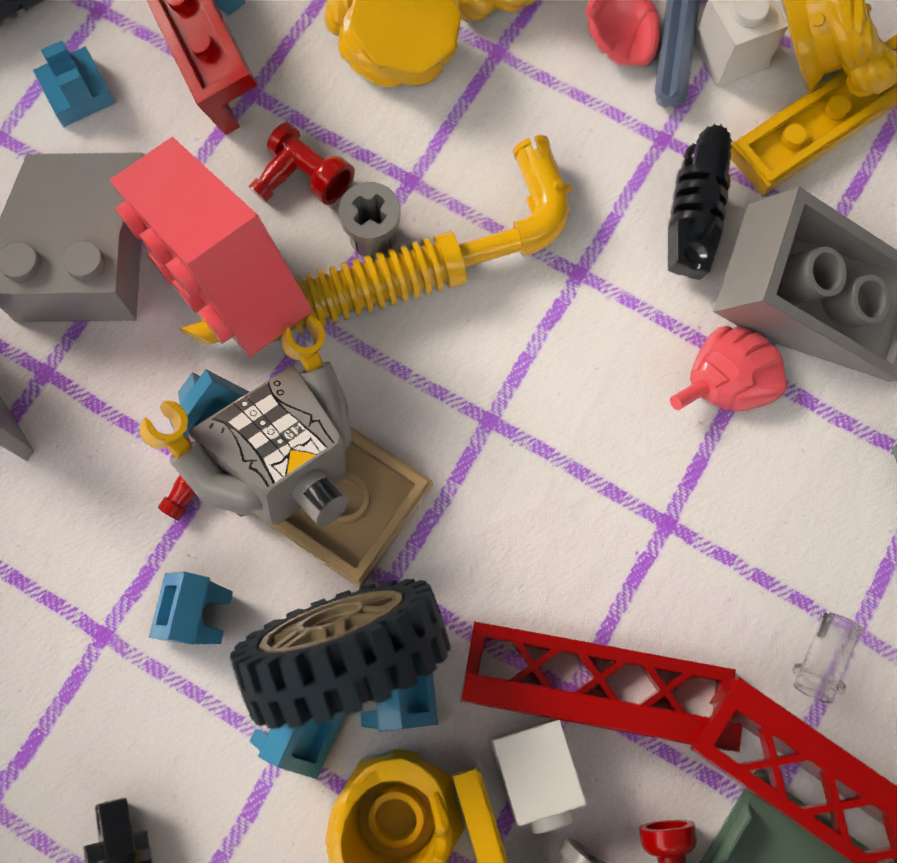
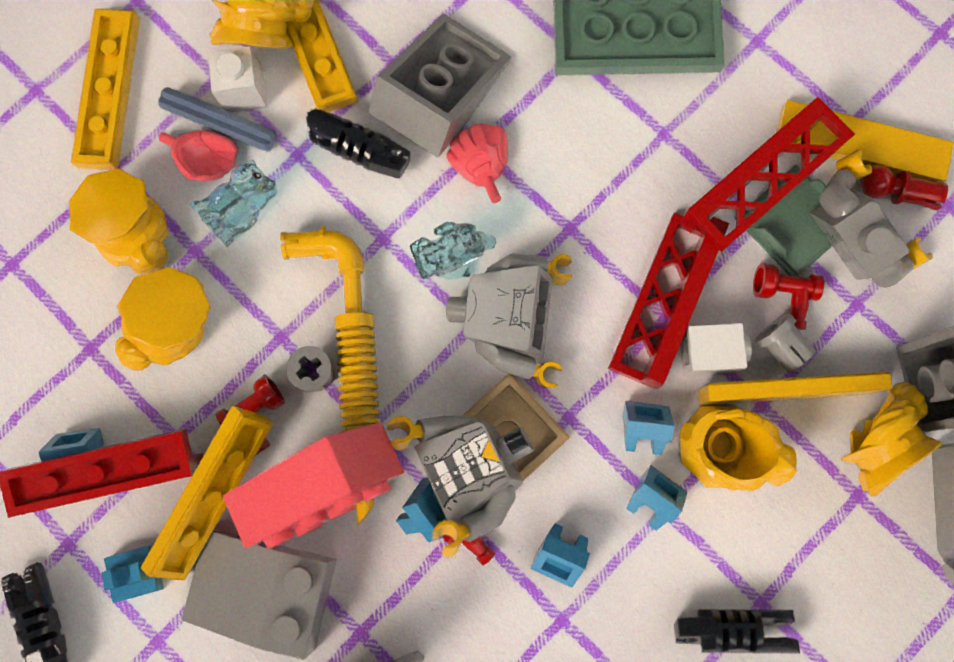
camera: 70 degrees left, 5 degrees up
(221, 140) = (203, 499): none -> yellow tile
(340, 654) = (623, 452): black wheel -> none
(516, 457) = (510, 313): none -> light grey torso
(564, 66) = (236, 204): none -> clear light blue animal
(579, 353) = (451, 252): none -> clear light blue animal
(827, 658) = (679, 155): clear pin -> none

